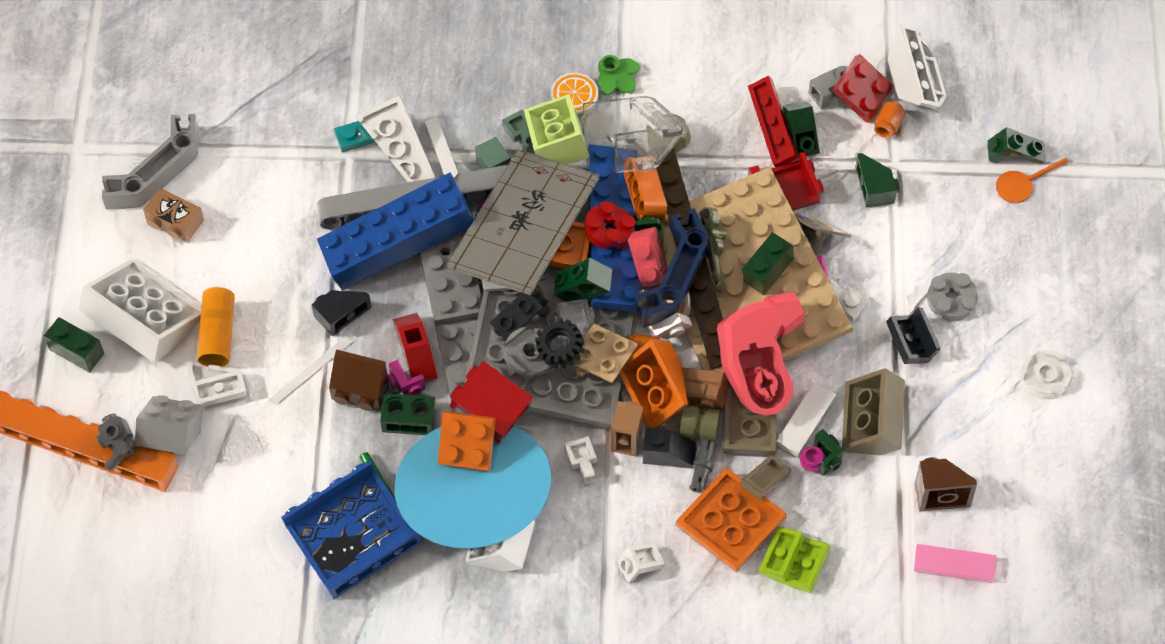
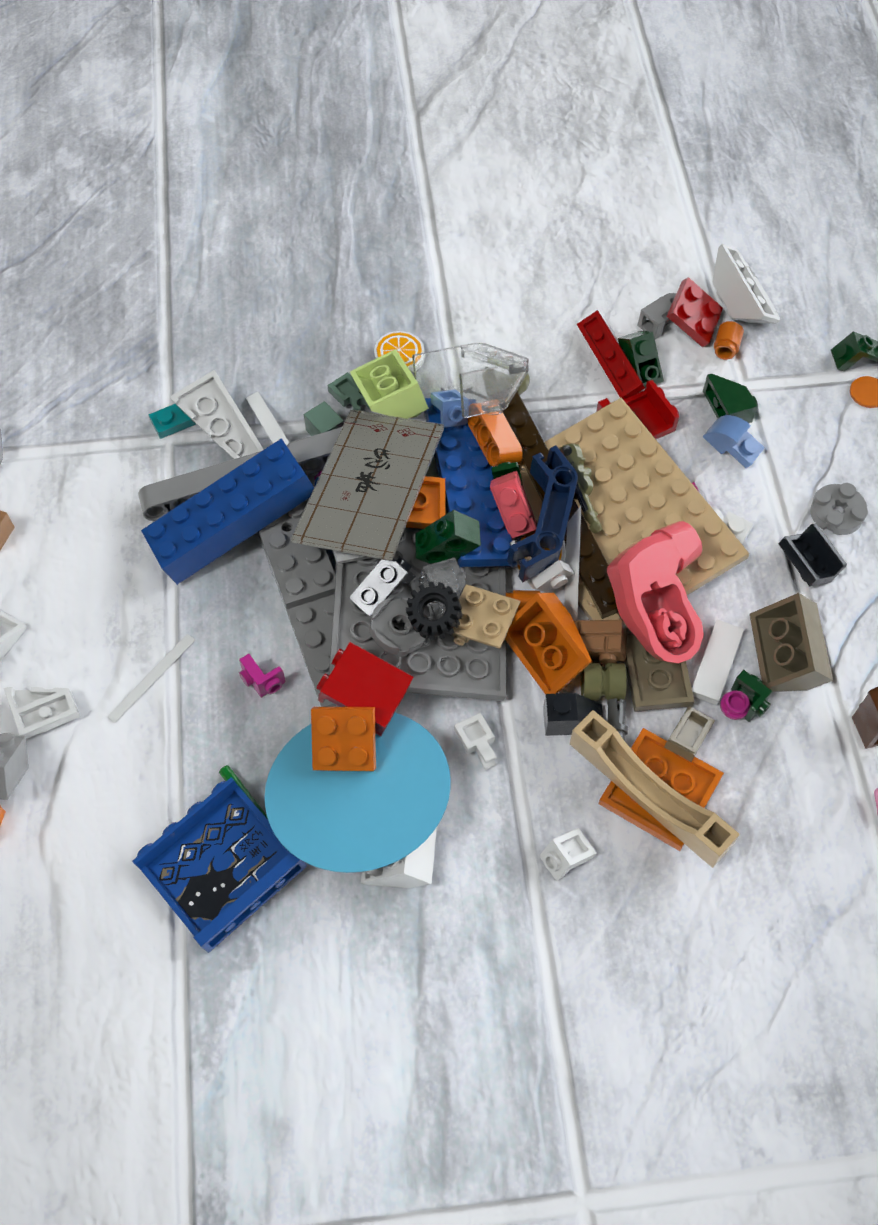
camera: 10 degrees left, 0 degrees up
(216, 327) = (36, 645): light orange piece -> none
(340, 308) = (176, 604): black slope -> none
(358, 381) = (207, 683): reddish brown slope -> none
(407, 420) = (269, 721): dark green brick -> none
(415, 346) = (267, 636): red slope -> none
(606, 154) = (450, 406): none -> medium blue bracket
(613, 215) = (460, 464): red plate -> none
(619, 77) = (439, 328): bright green plate -> none
(627, 428) = (524, 698): medium nougat brick -> none
(693, 314) = (572, 559): none -> white sticker
(744, 547) = (692, 824): none -> tan arch
(768, 263) = (645, 495): dark green brick -> none
(794, 559) = (752, 819): lime slope -> none
(816, 231) = (686, 461): dark tan shield -> none
(867, 215) = (732, 435): none -> medium blue brick

